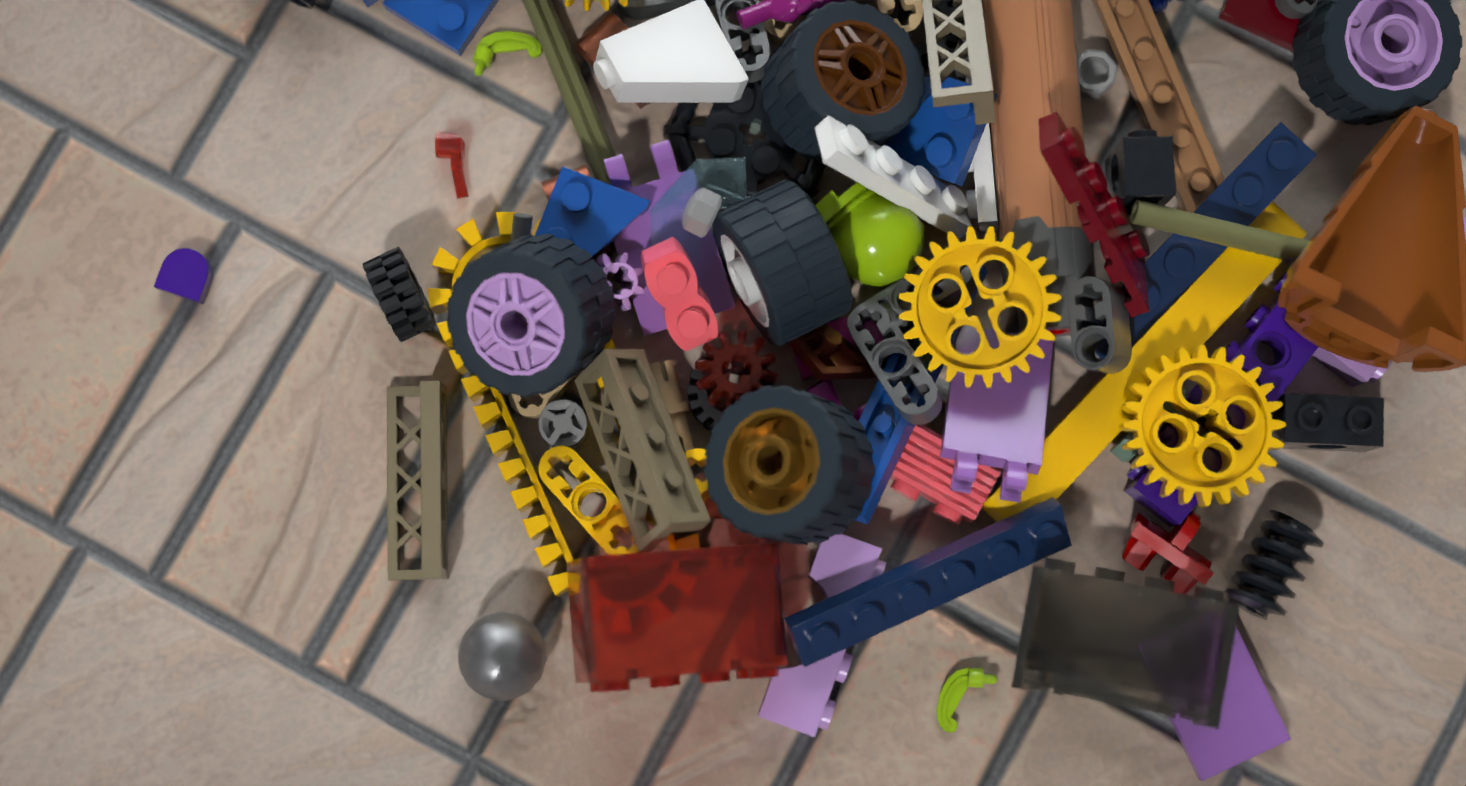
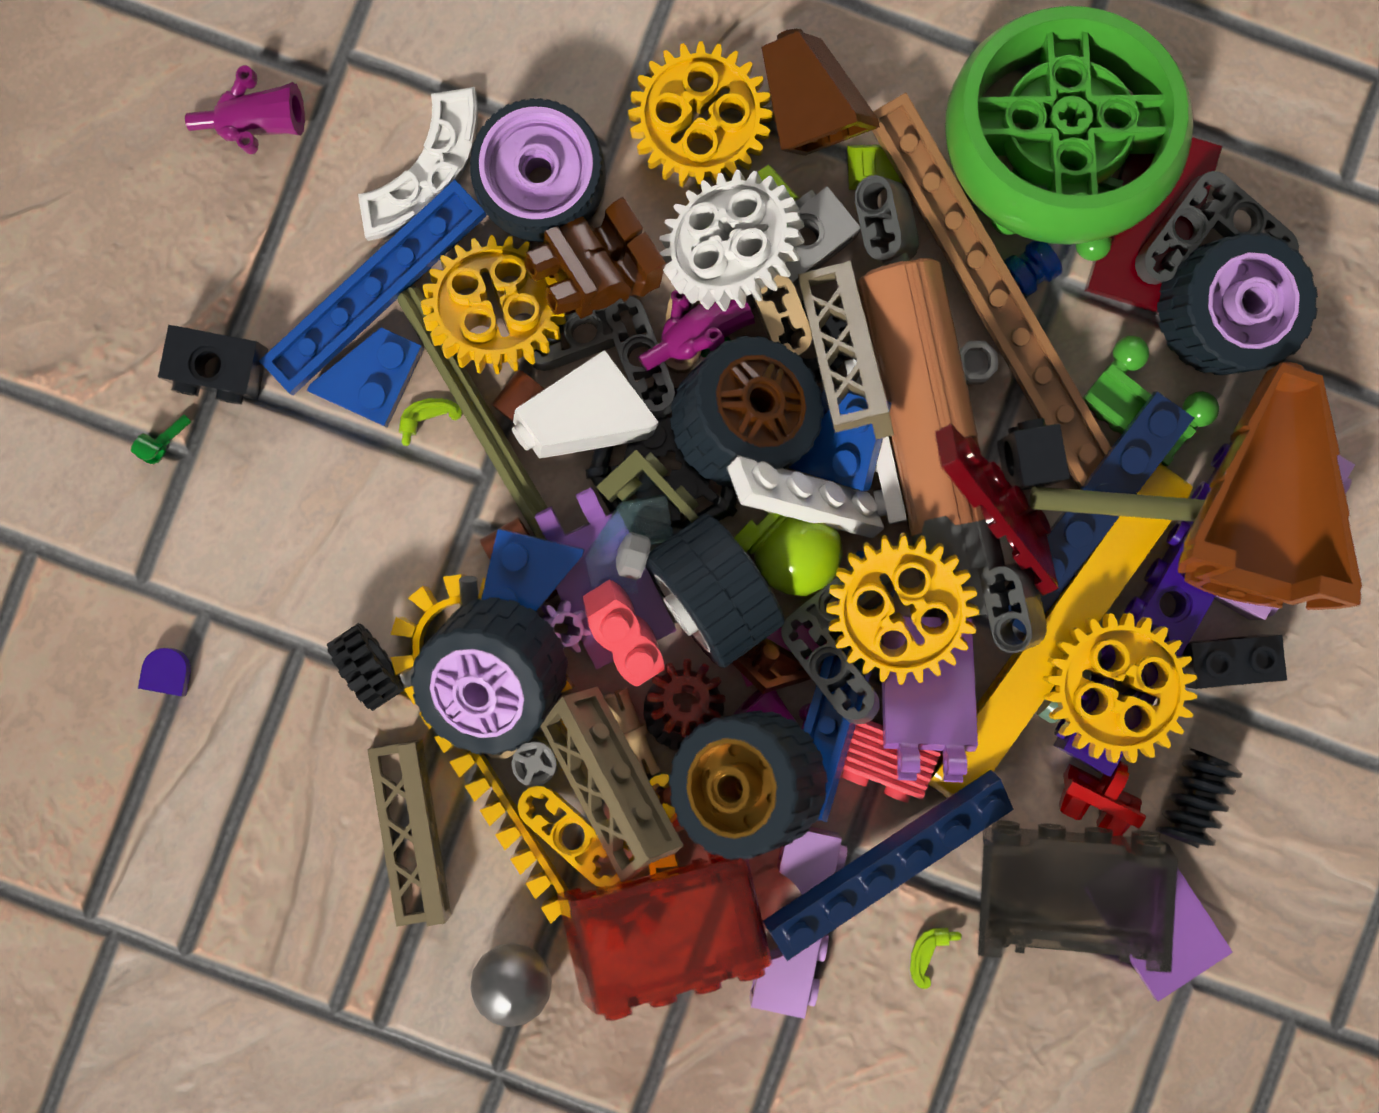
camera: 10 degrees left, 5 degrees up
(211, 43) = (154, 450): none -> green hand
(453, 147) = (394, 517): clear red hand -> none
(704, 137) = (625, 482): none -> olive bracket
(1239, 129) = (1119, 398): none -> bright green gear

